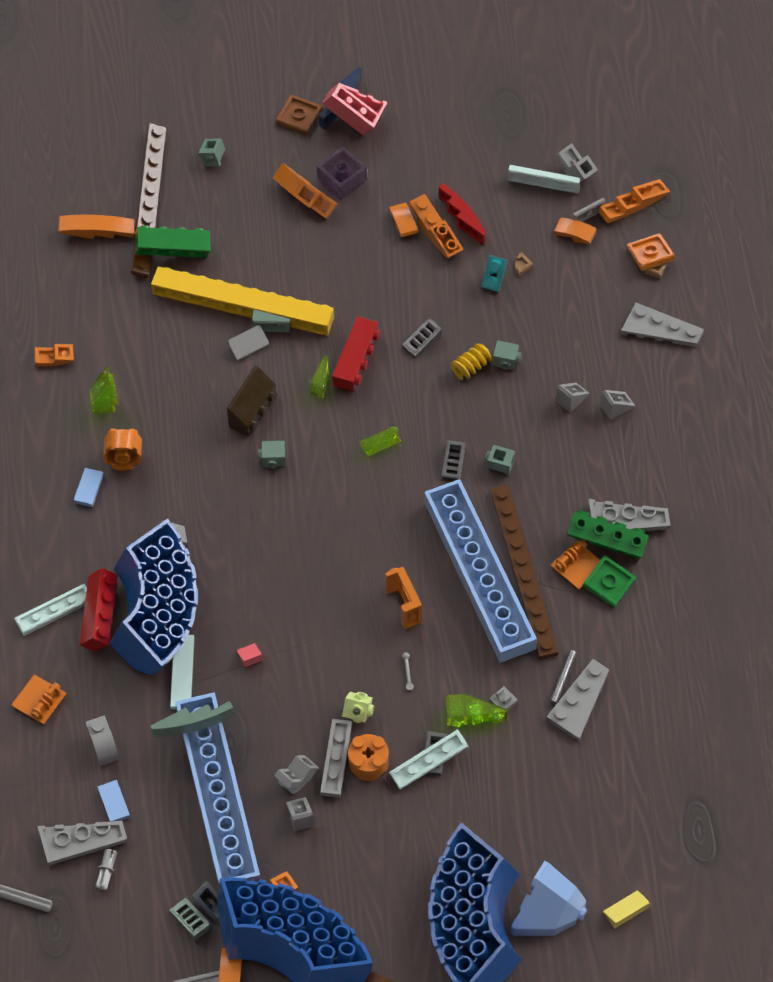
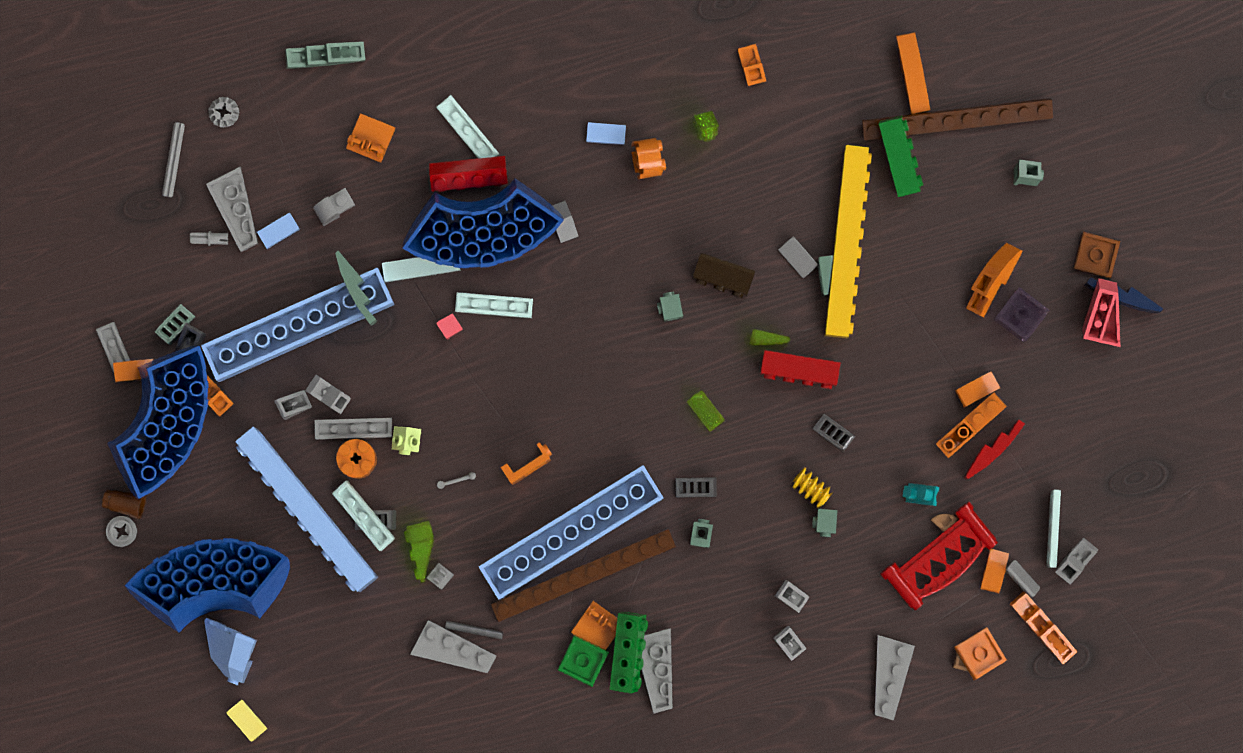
camera: 80 degrees right, 25 degrees up
(236, 611) = (494, 305): none -> light aqua tile
(412, 809) = (307, 510): none -> light blue brick
(569, 301) = (904, 578): none -> red piece

